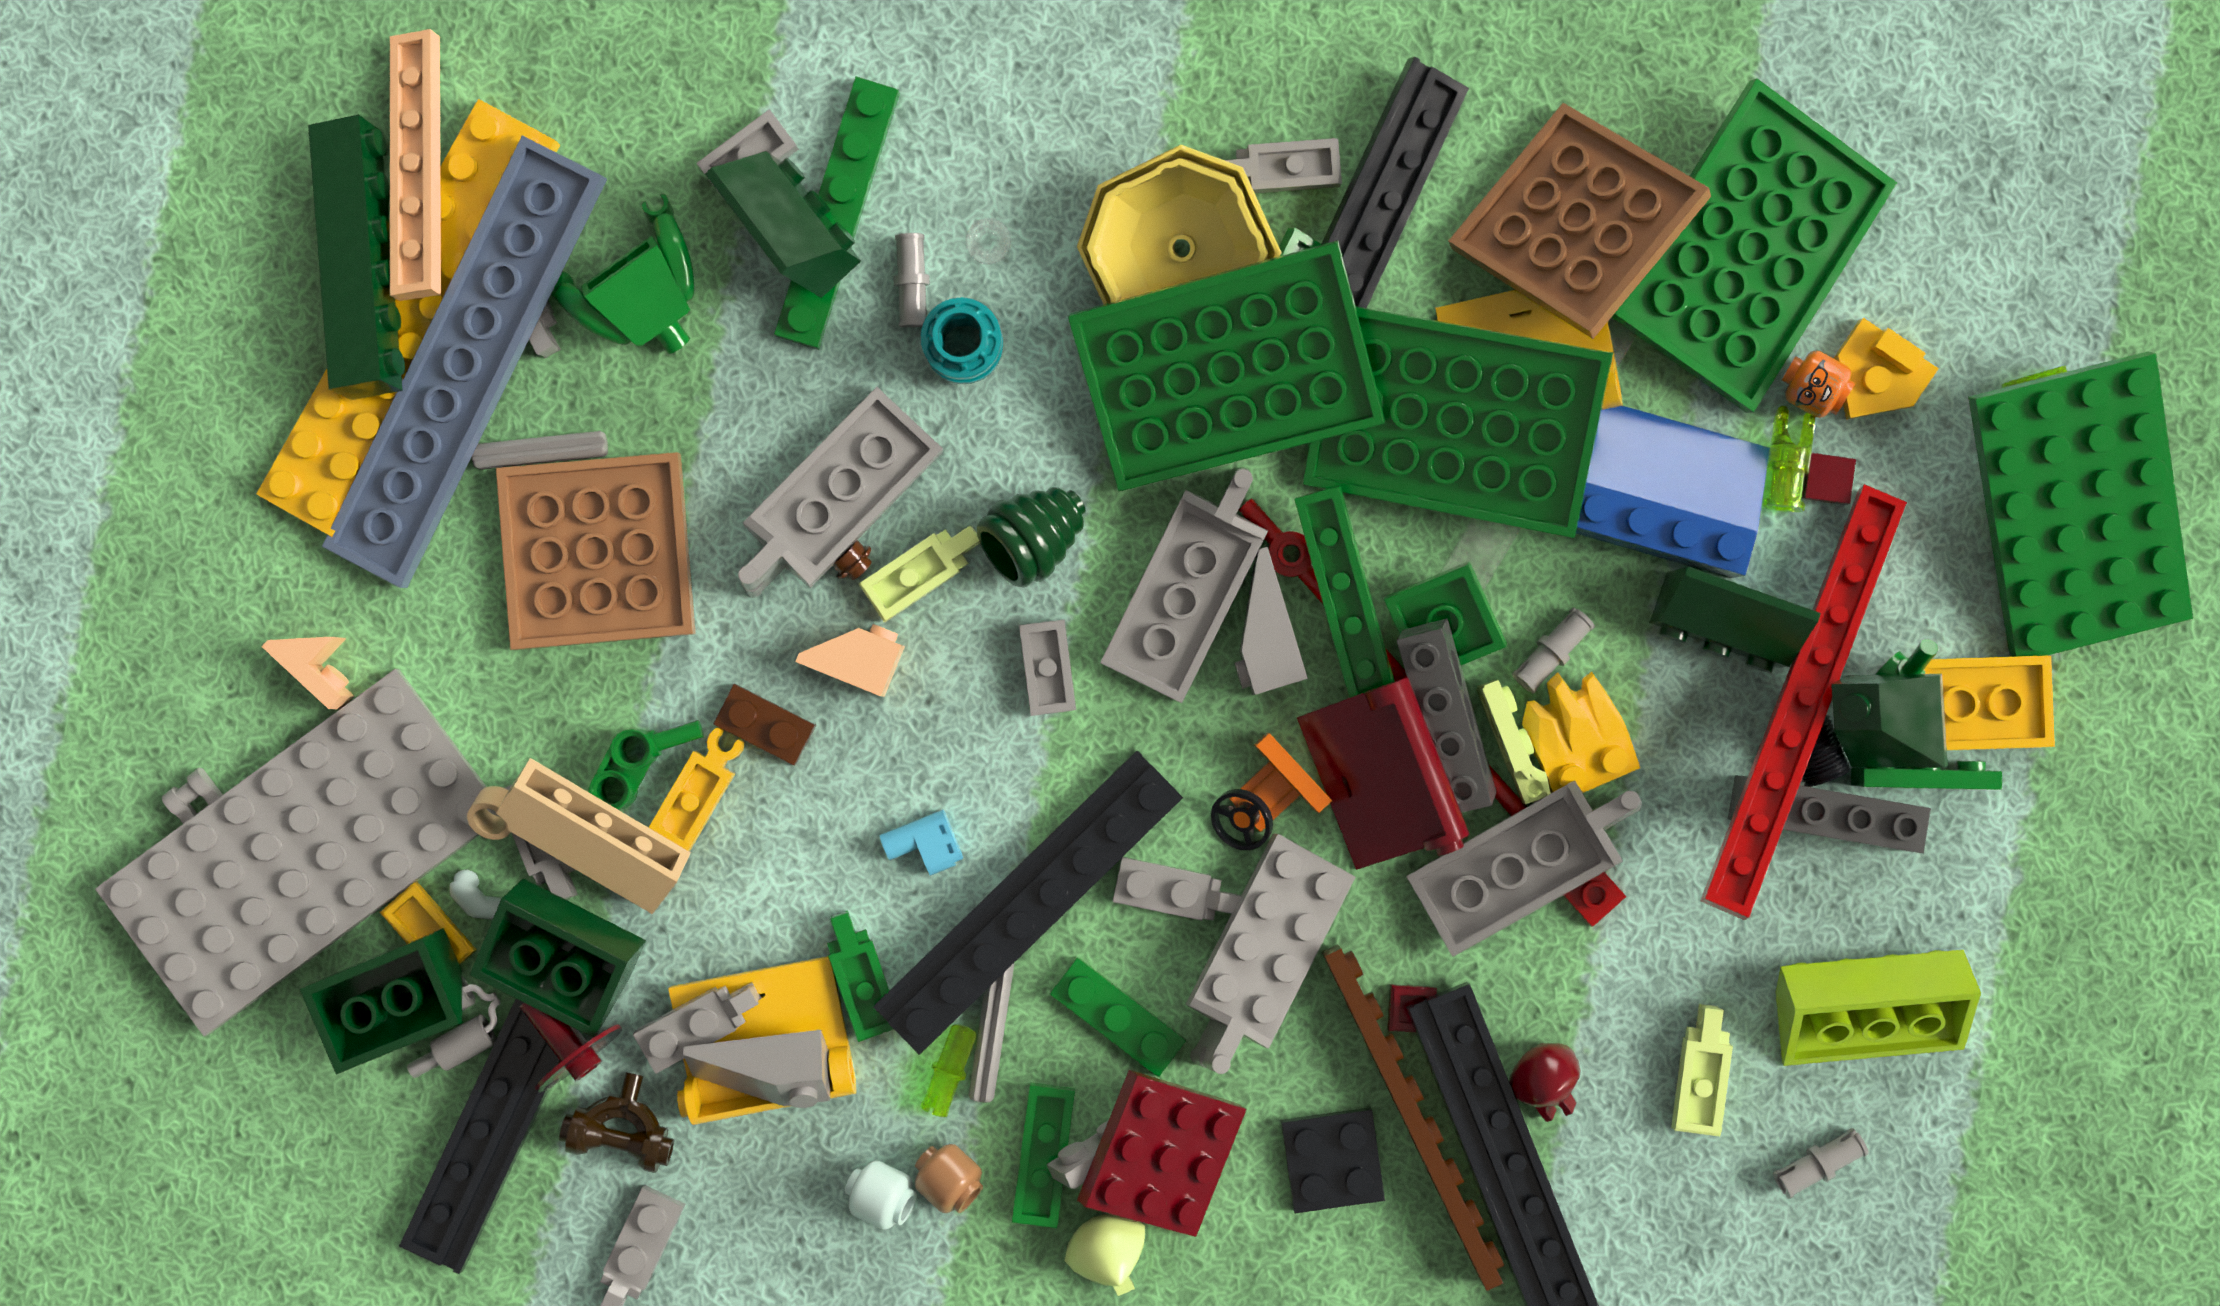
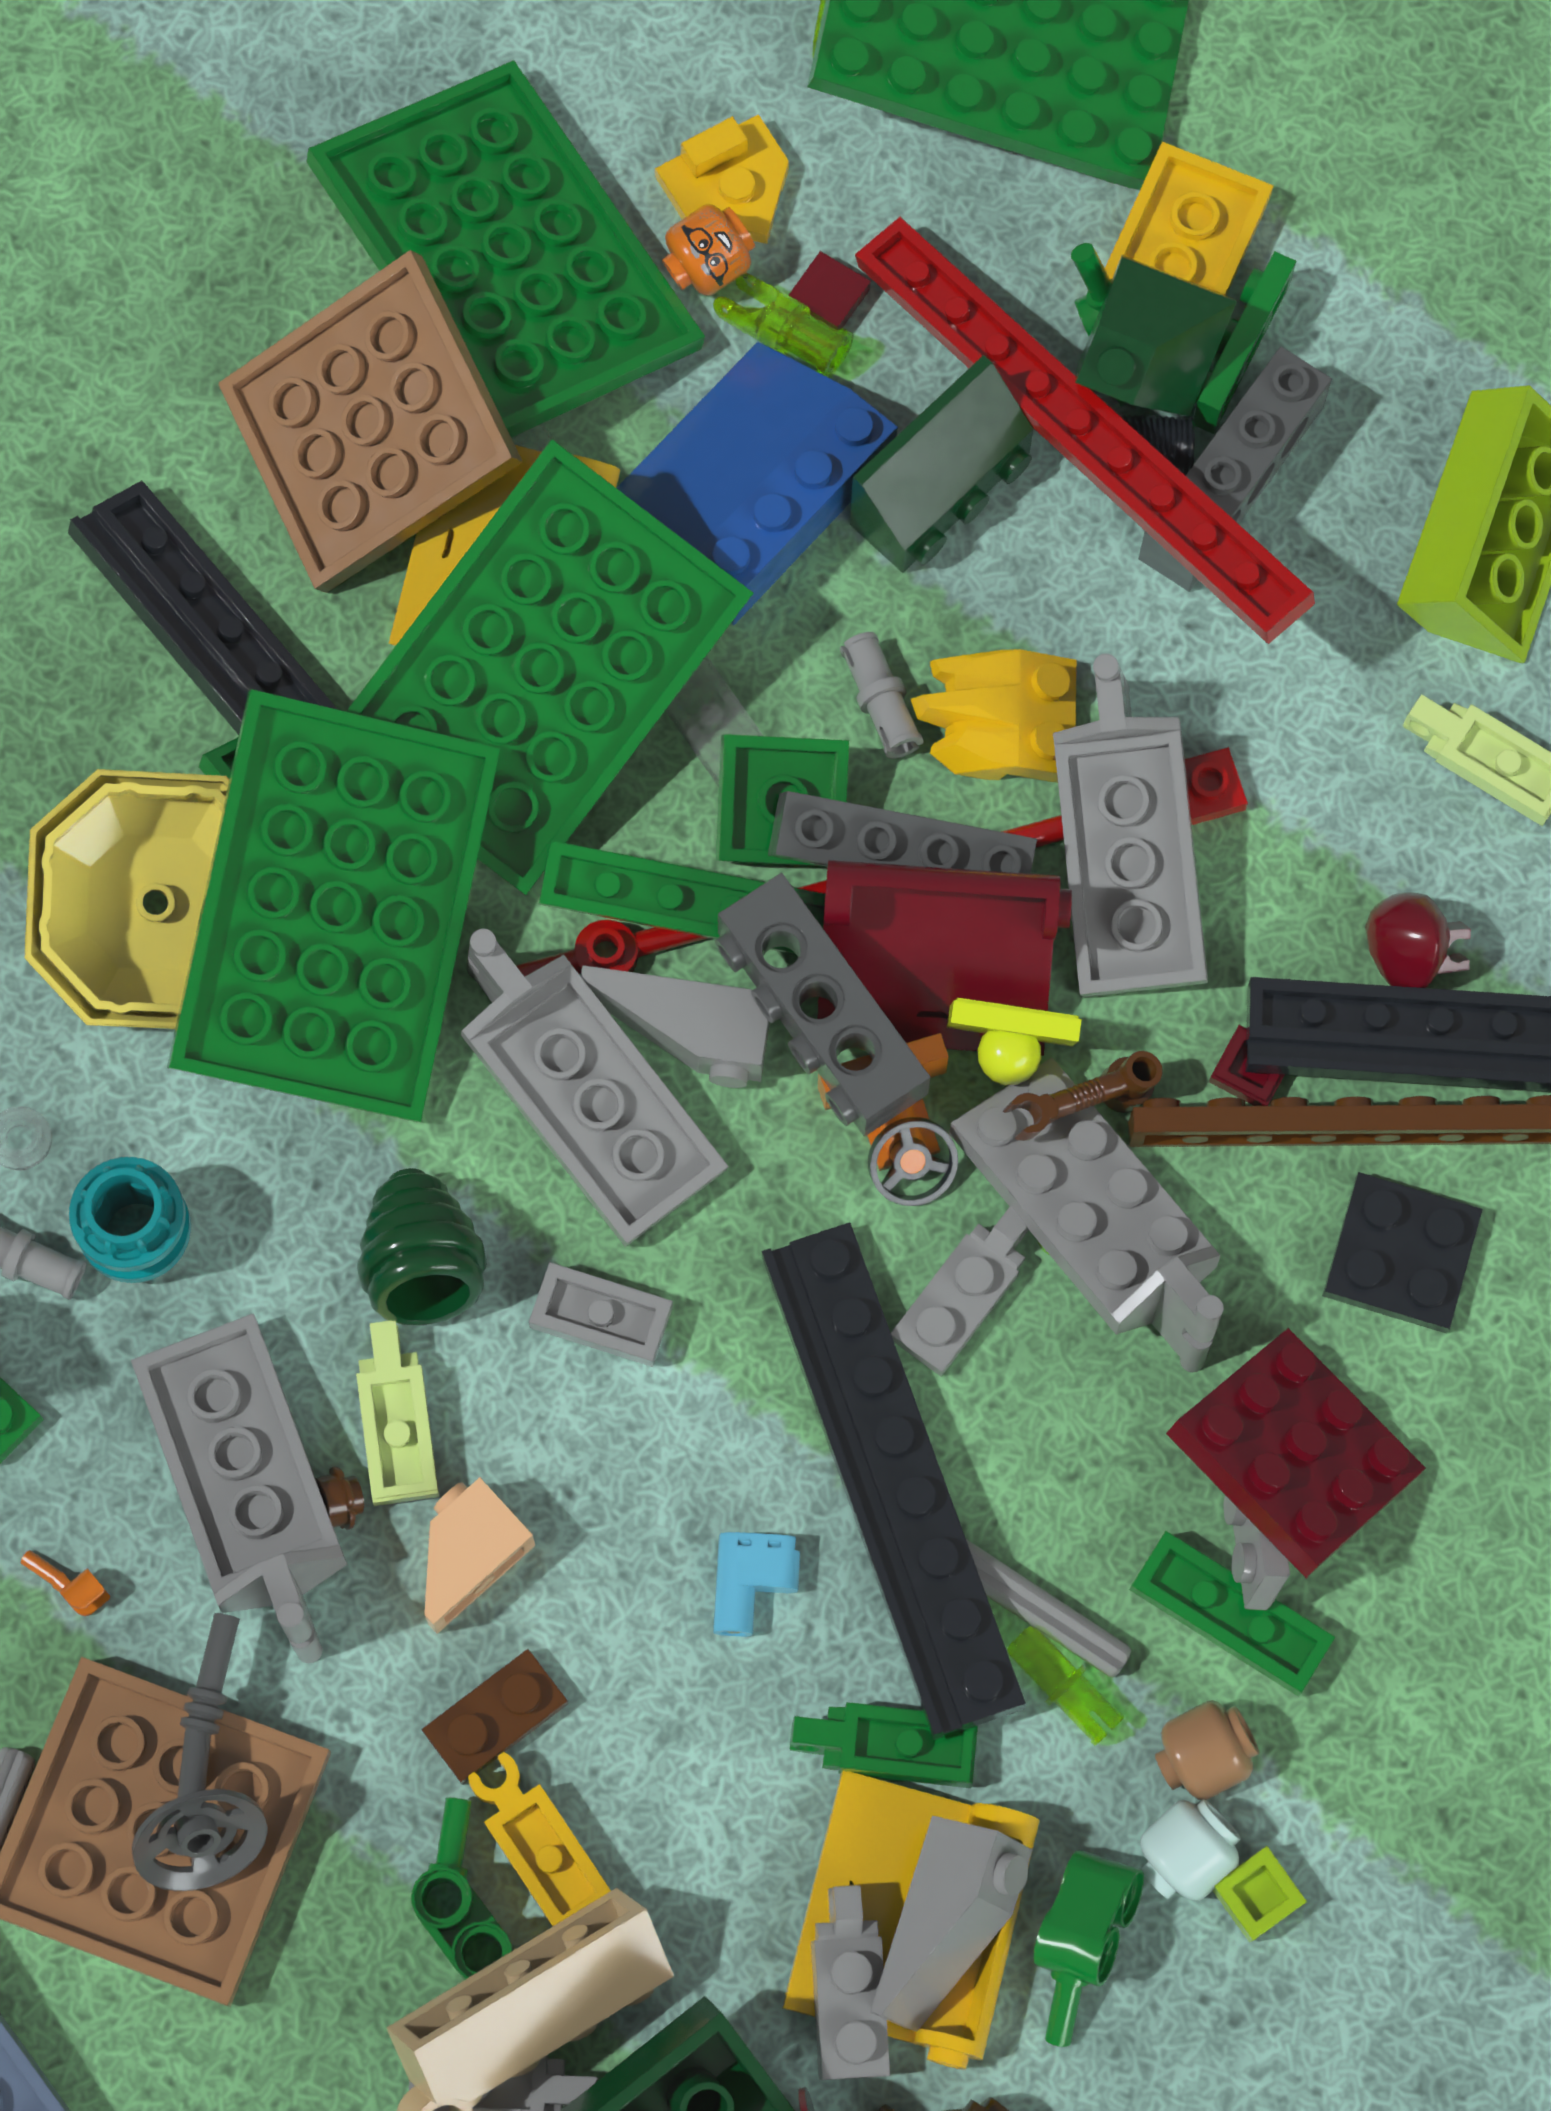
camera: 65 degrees left, 15 degrees down
(601, 576) = (192, 1817): none -> dark grey dish
(719, 431) = (82, 1593): none -> orange hand
(795, 1151) = (1079, 1935): none -> green beam
(874, 1250) = (1258, 1894): none -> lime plate
(1107, 1250) = (1392, 1584): yellowish green piece -> none
(1118, 1016) = (1091, 1437): green plate -> none
(1291, 165) = (125, 721): light grey hinge -> none
(1353, 847) = (1010, 1045): none -> neon yellow tile
(1353, 927) = (1120, 1086): none -> reddish brown brick
(1356, 661) = (776, 918): none -> dark grey brick
(1513, 743) = (969, 793): yellowish green hinge -> none

